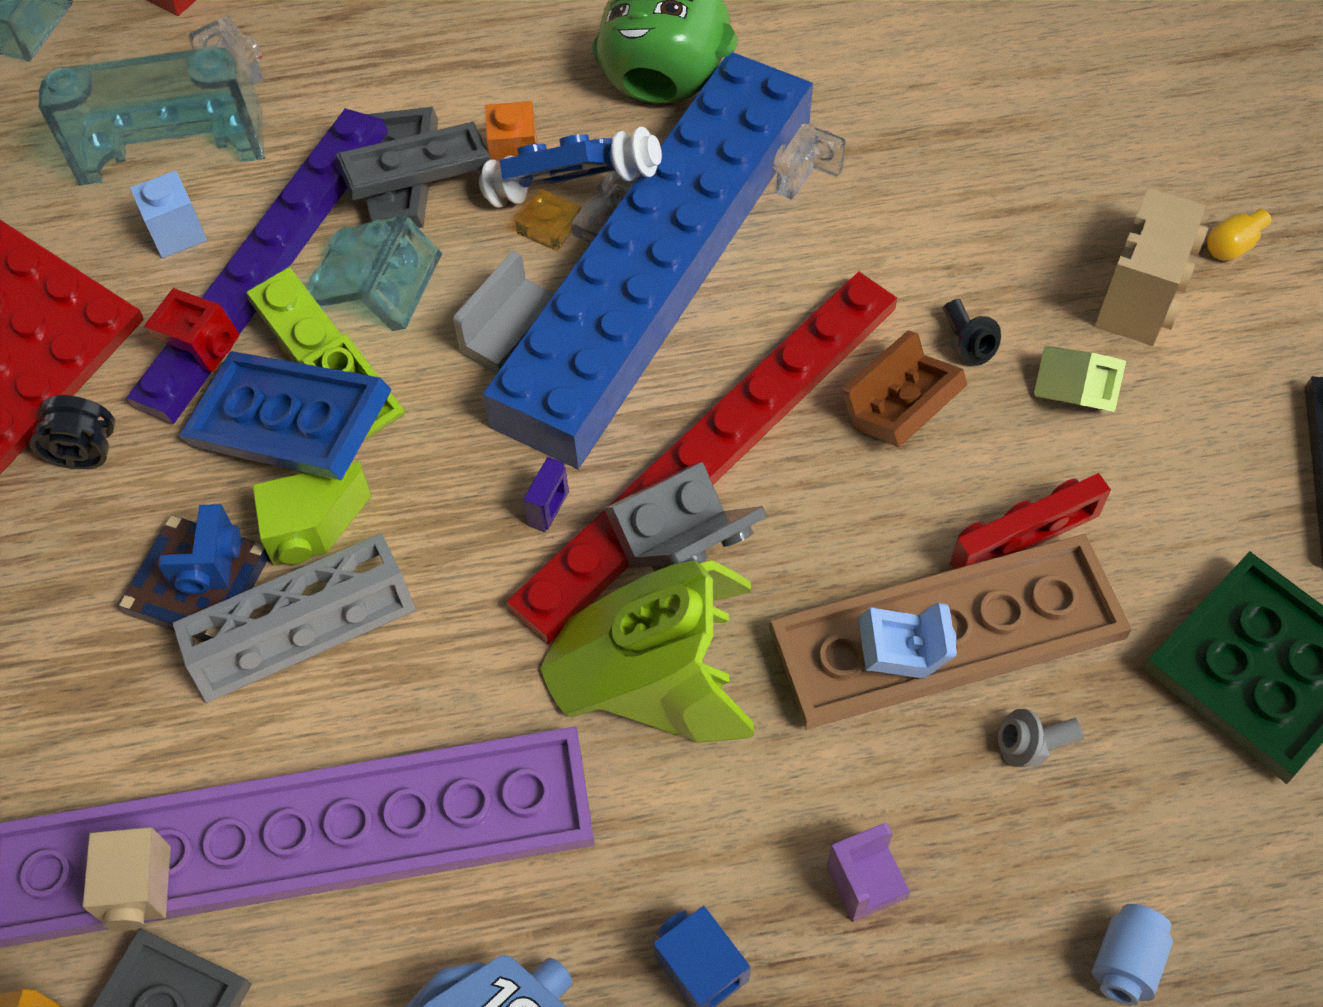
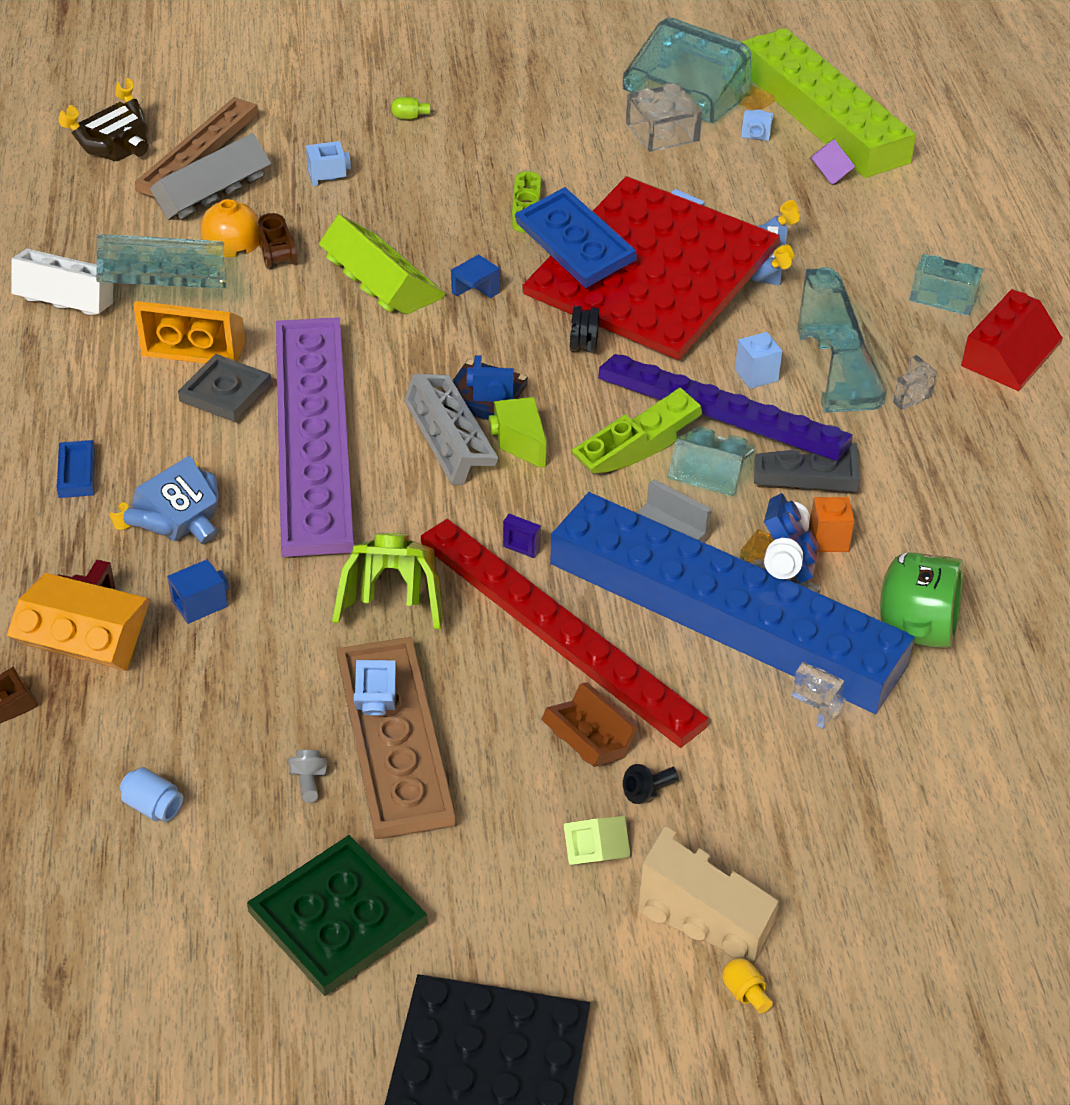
camera: 90 degrees right, 15 degrees down
(127, 877) = (291, 358): tan brick -> none
(193, 326) = (651, 367): red bracket -> none
(286, 414) = (582, 408): blue plate -> none
(412, 160) = (799, 463): dark grey tile -> none
(678, 520) = (486, 589): dark grey bracket -> none
(867, 872) = (231, 668): medium lavender panel -> none
(1032, 523) = (469, 788): red plate -> none

